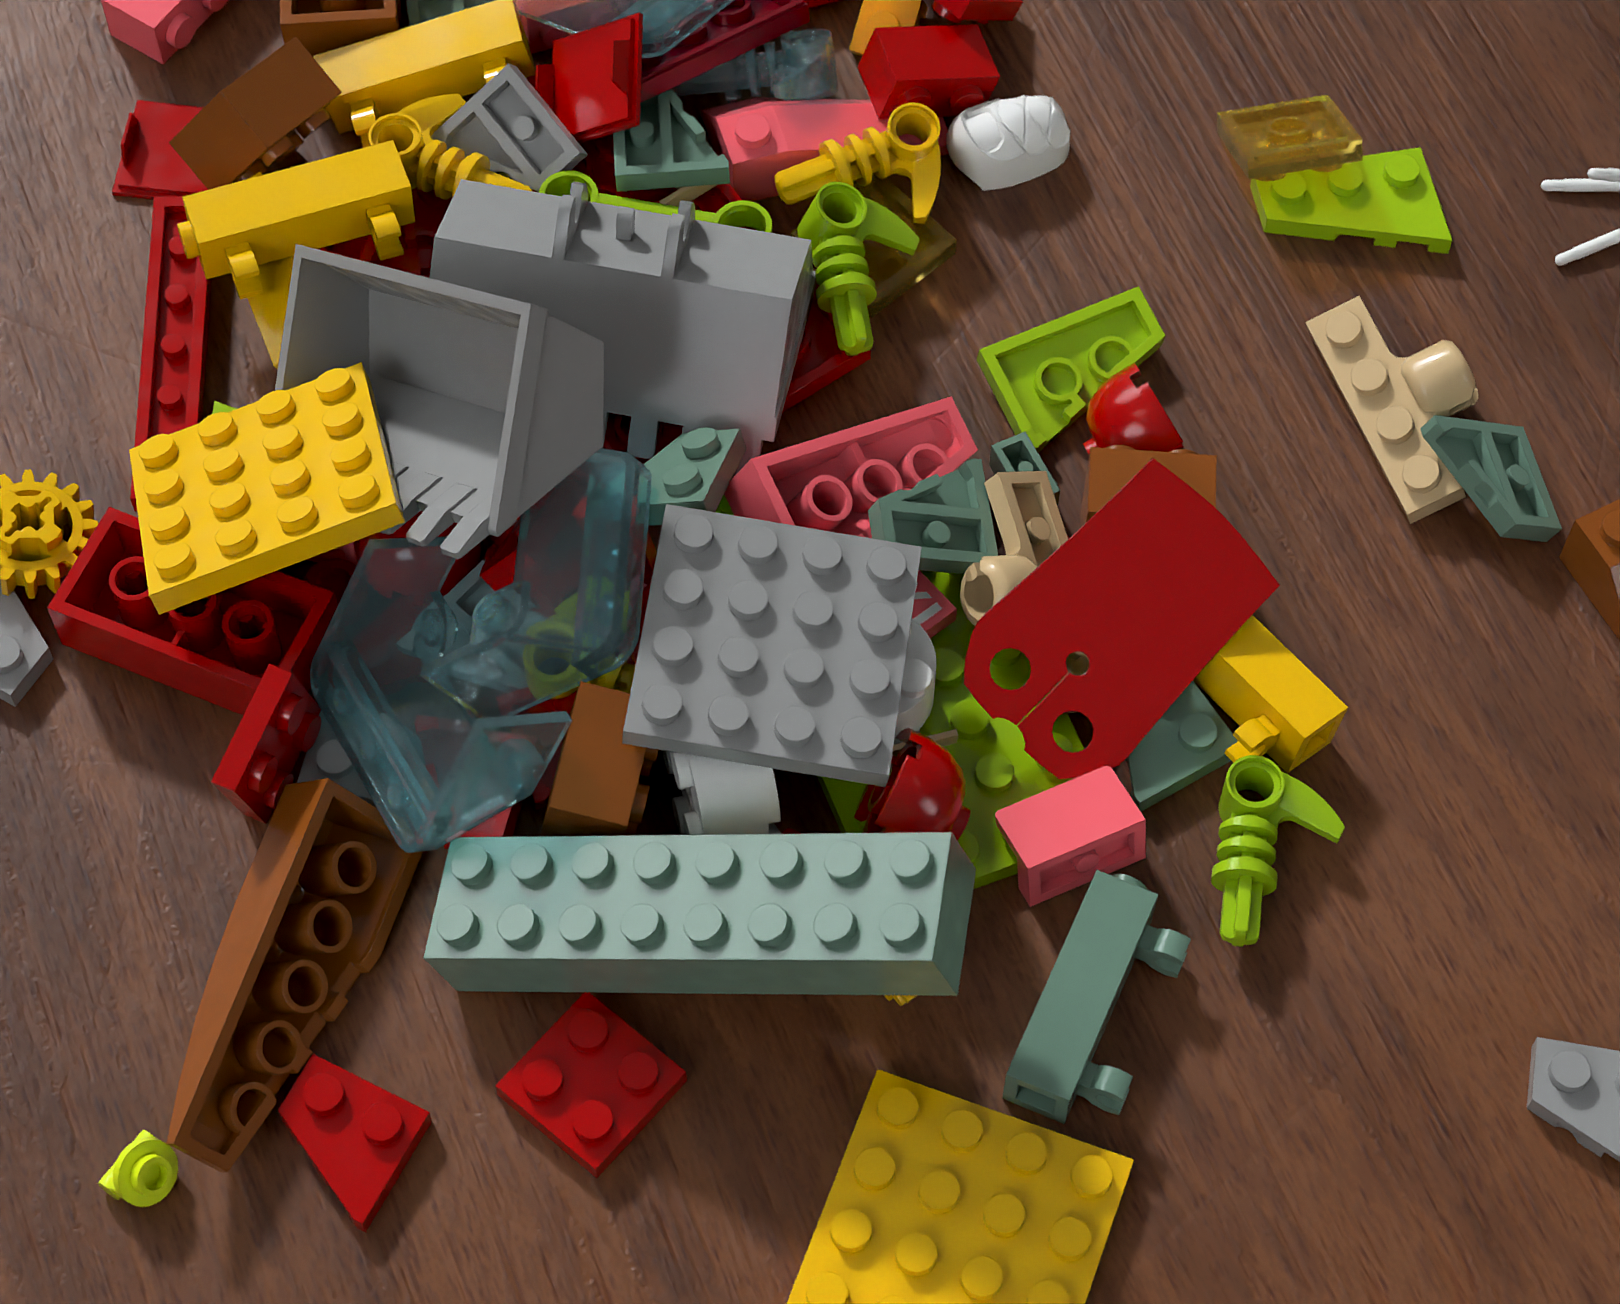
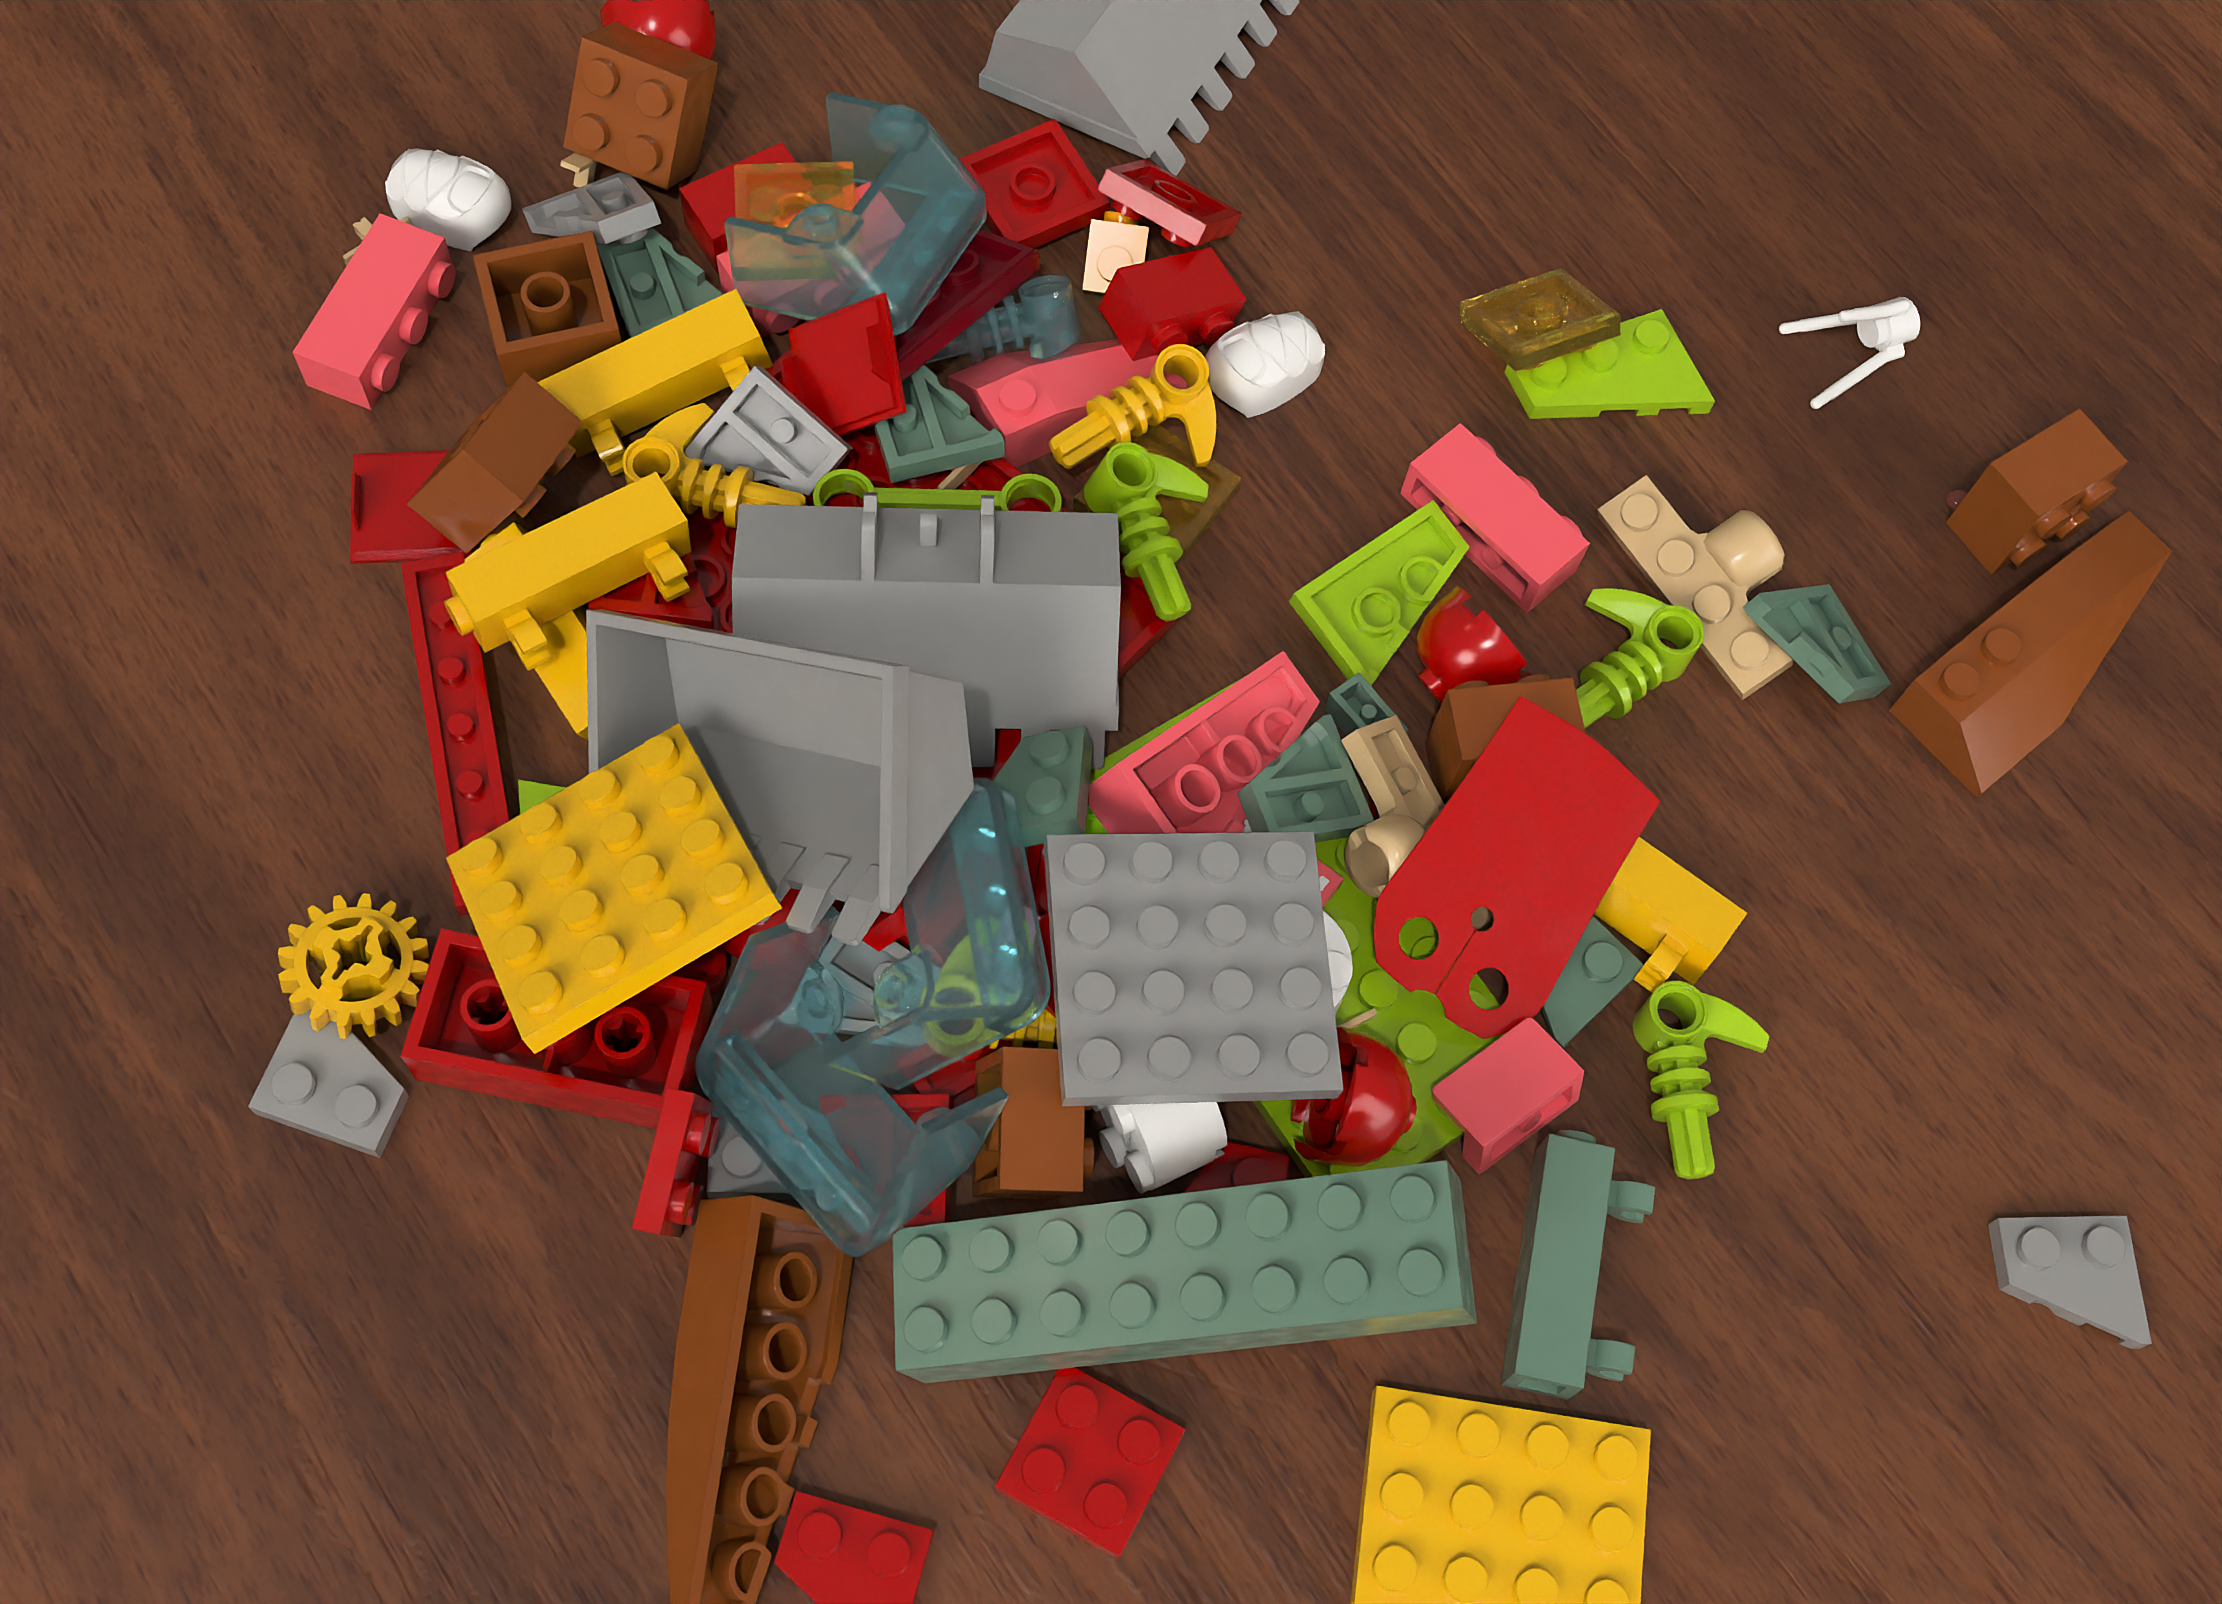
camera: 20 degrees left, 5 degrees up
(1201, 313) = (1499, 515): none -> coral brick
(1308, 468) = (1643, 659): none -> lime piece

